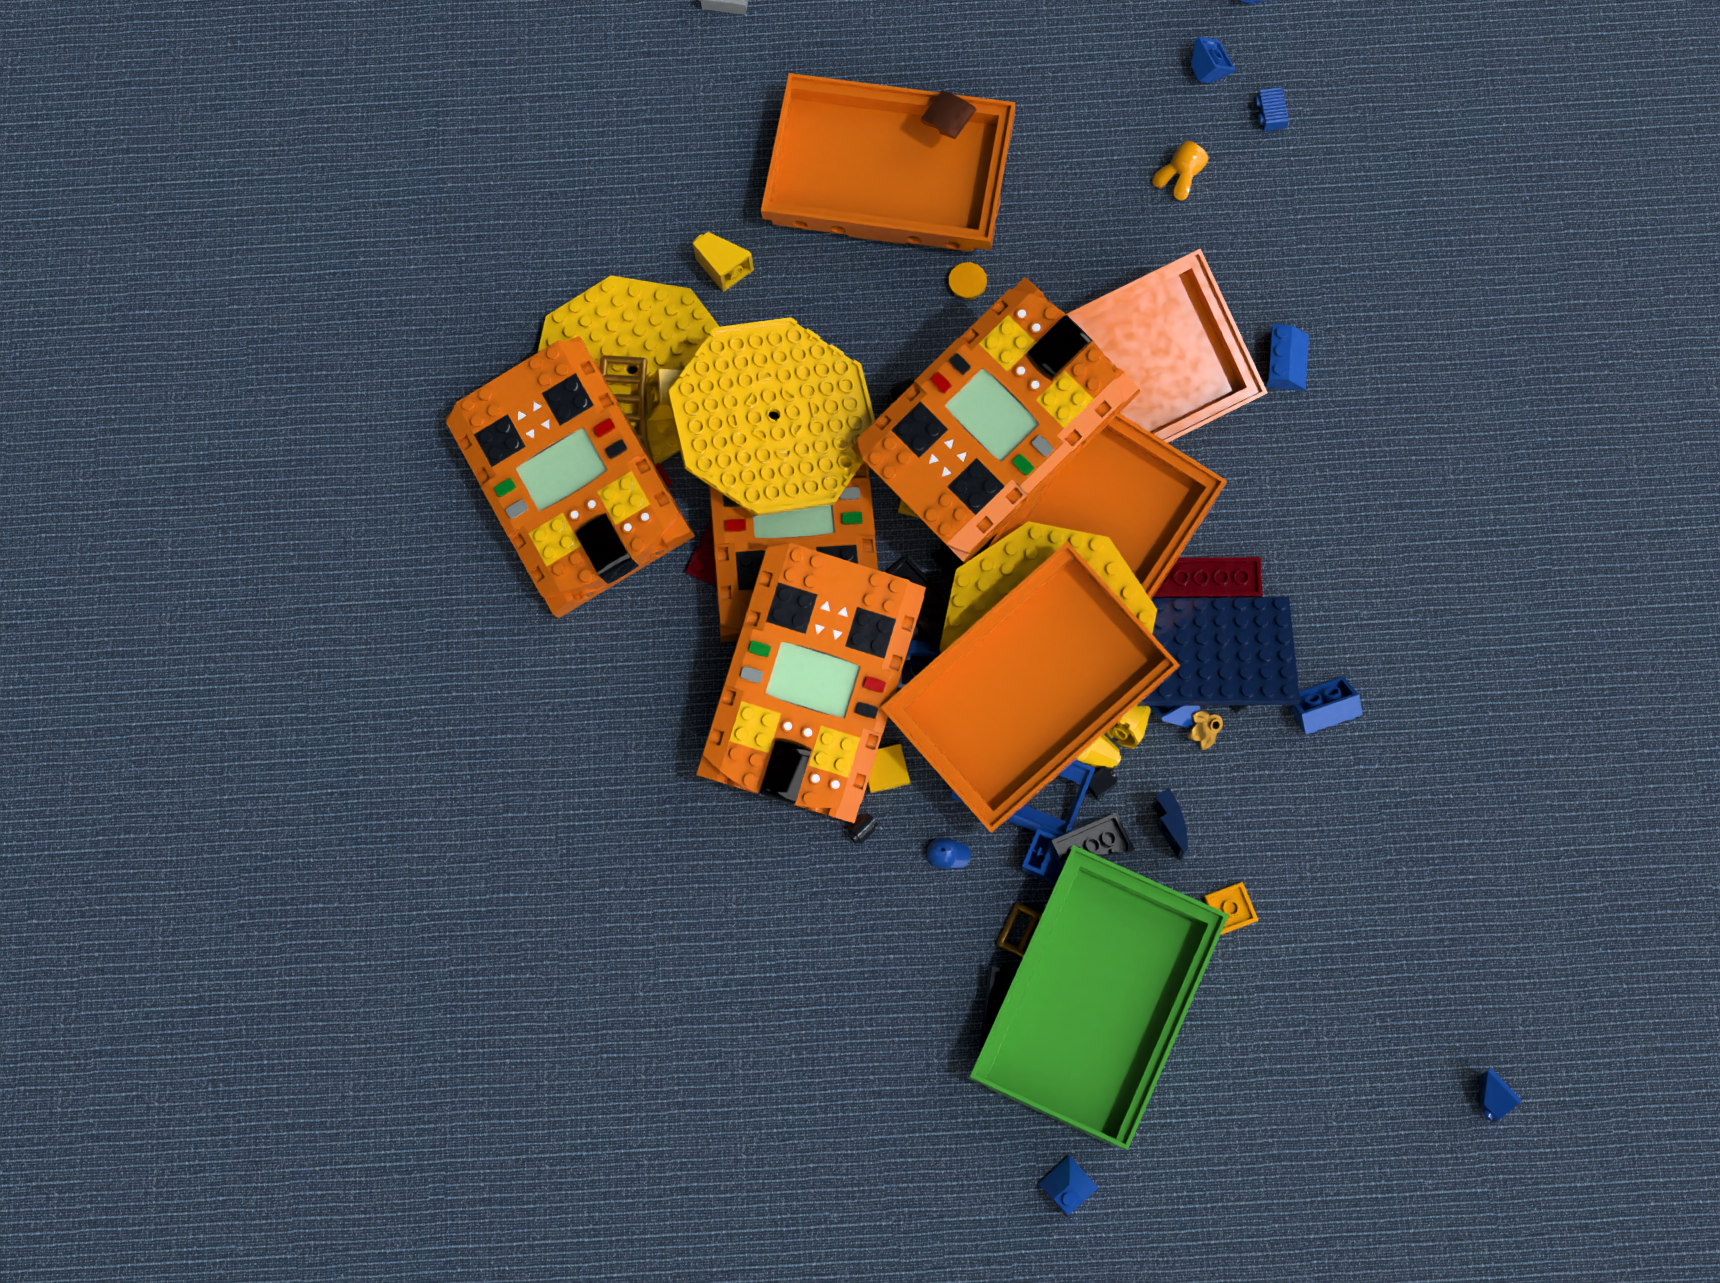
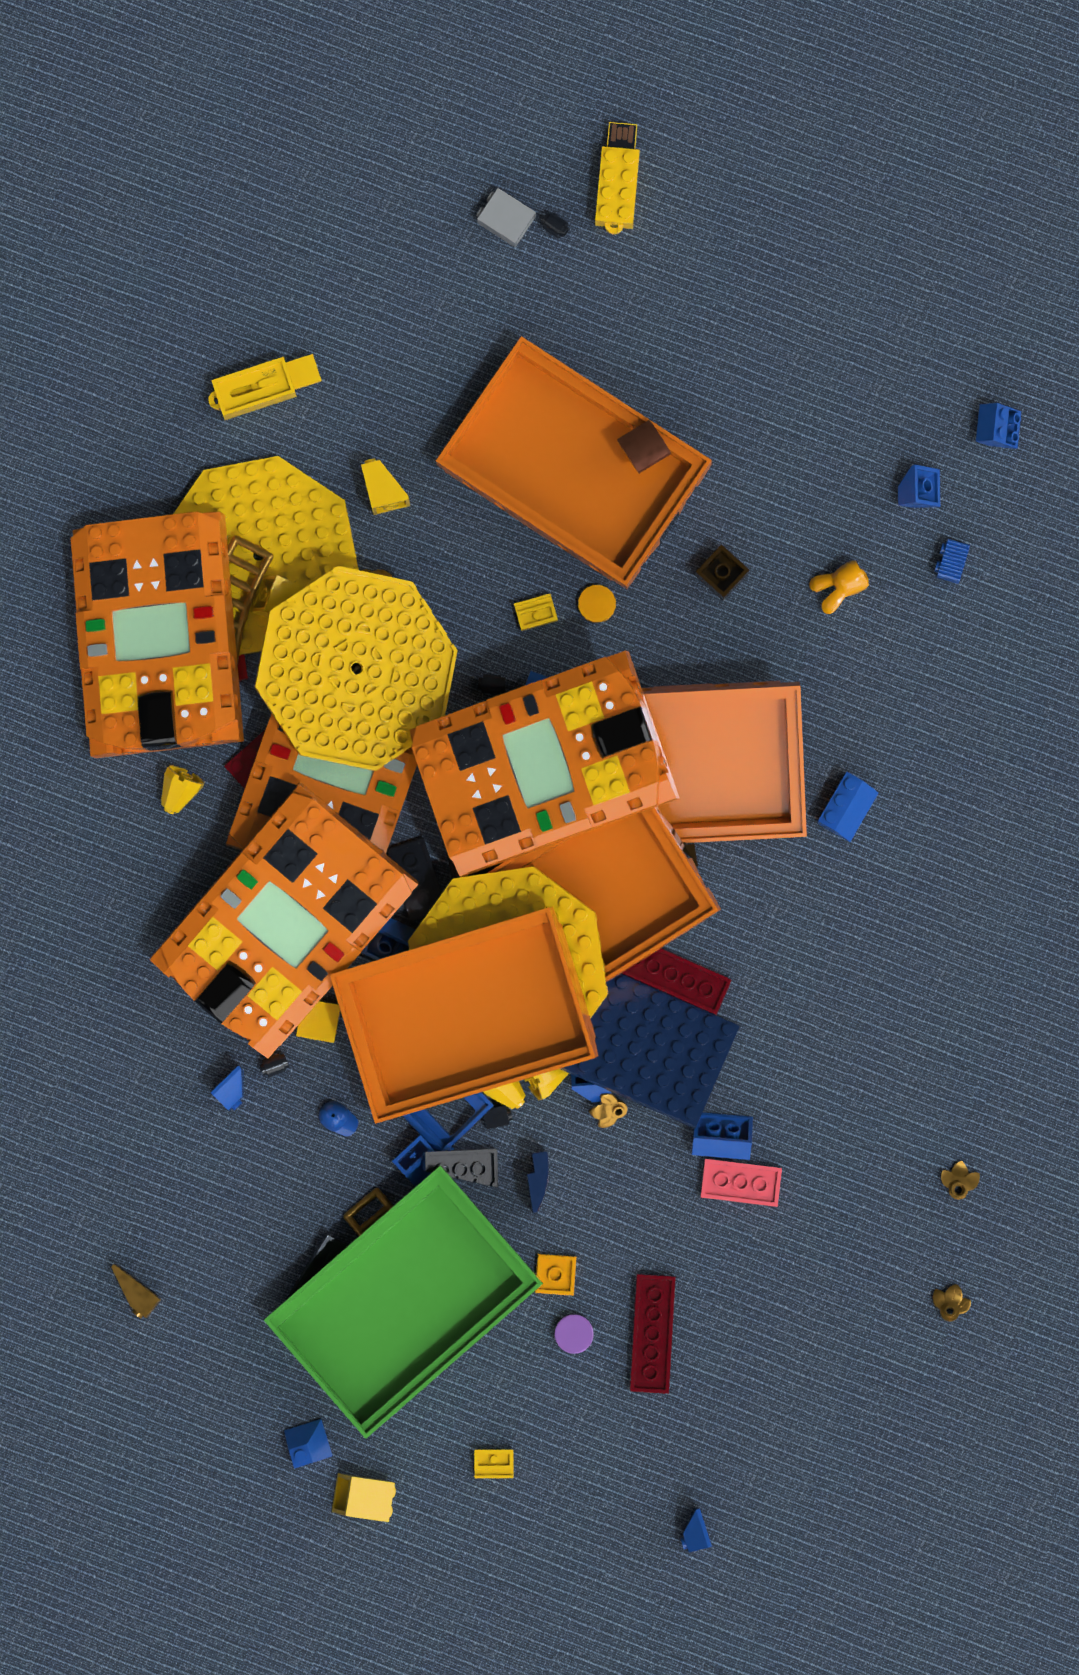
camera: 25 degrees right, 10 degrees up
(567, 220) = (262, 385): none -> yellow piece
(652, 610) = (179, 788): none -> yellow cone
(830, 1113) = (137, 1295): none -> pearl gold slope
(831, 871) = (231, 1089): none -> blue slope
(915, 311) = (535, 612): none -> yellow plate
(1070, 203) = (722, 572): none -> dark brown brick
(1149, 1214) = (363, 1497): none -> yellow slope
(1262, 1121) = (494, 1463): none -> yellow plate
(1277, 957) = (574, 1334): none -> medium lavender tile
(1353, 923) = (652, 1334): none -> dark red plate
(1364, 741) = (741, 1182): none -> coral plate
(1565, 645) = (959, 1177): none -> pearl gold plate
(1620, 762) = (952, 1300): none -> pearl gold plate

